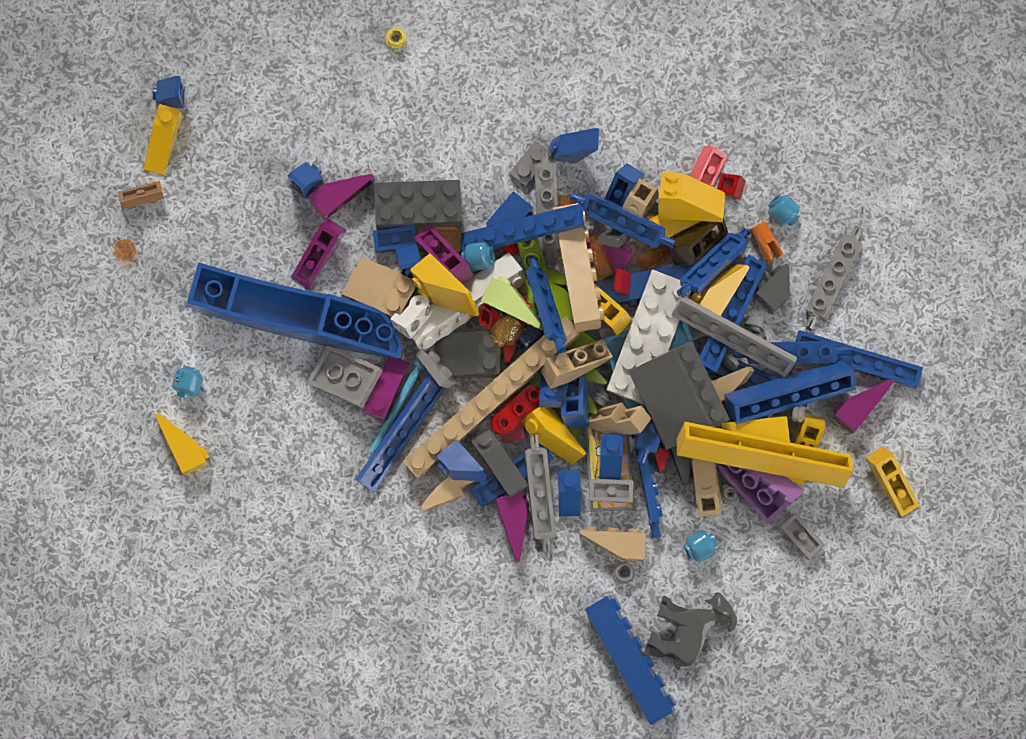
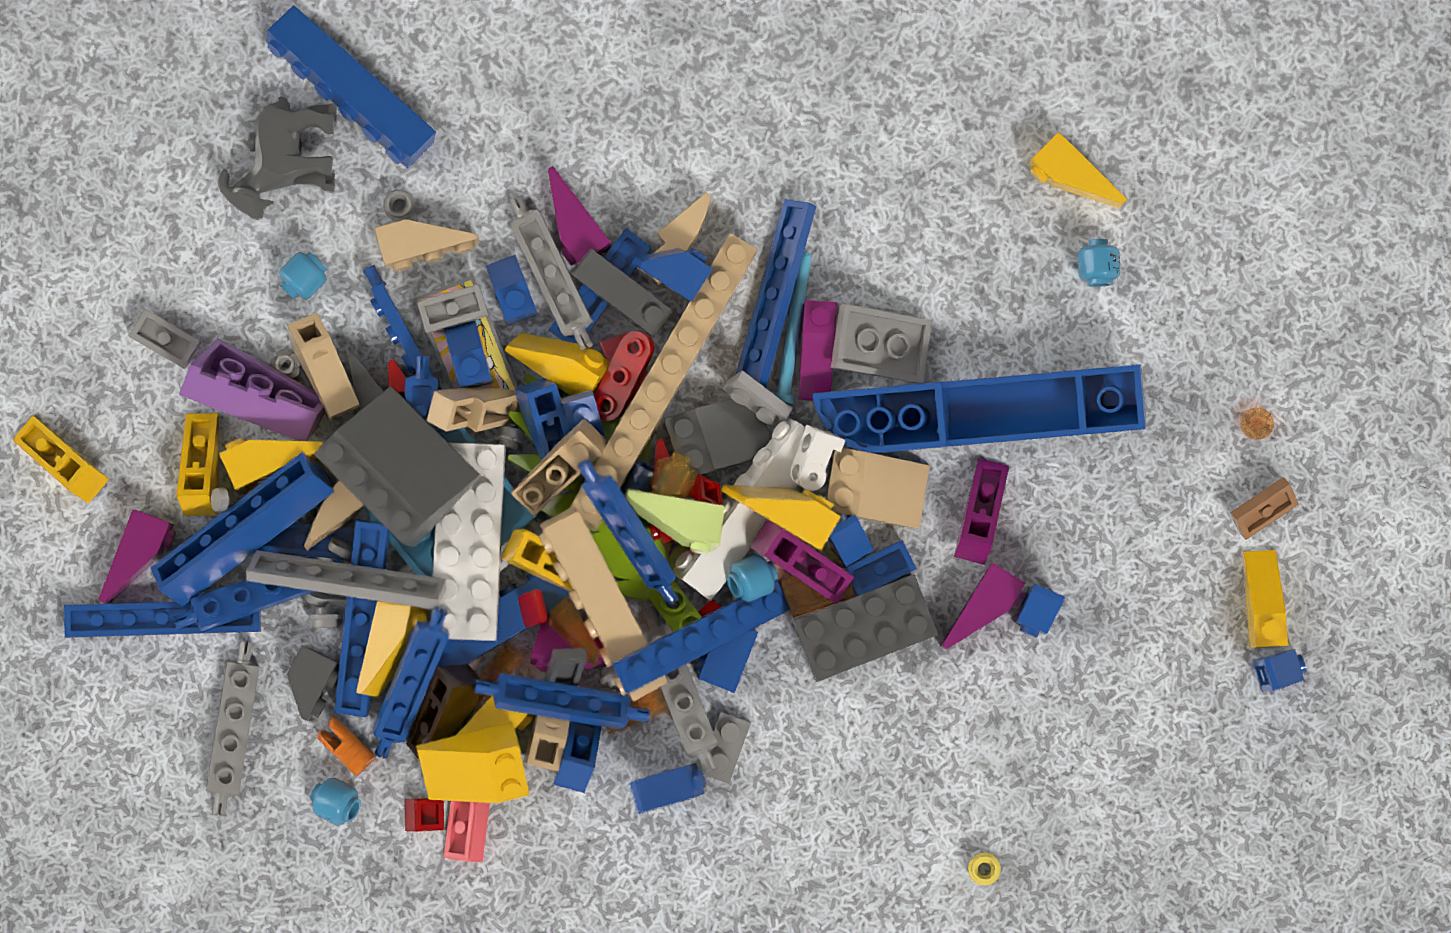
camera: 165 degrees right, 5 degrees up
(764, 454) = (249, 421): yellow brick -> none

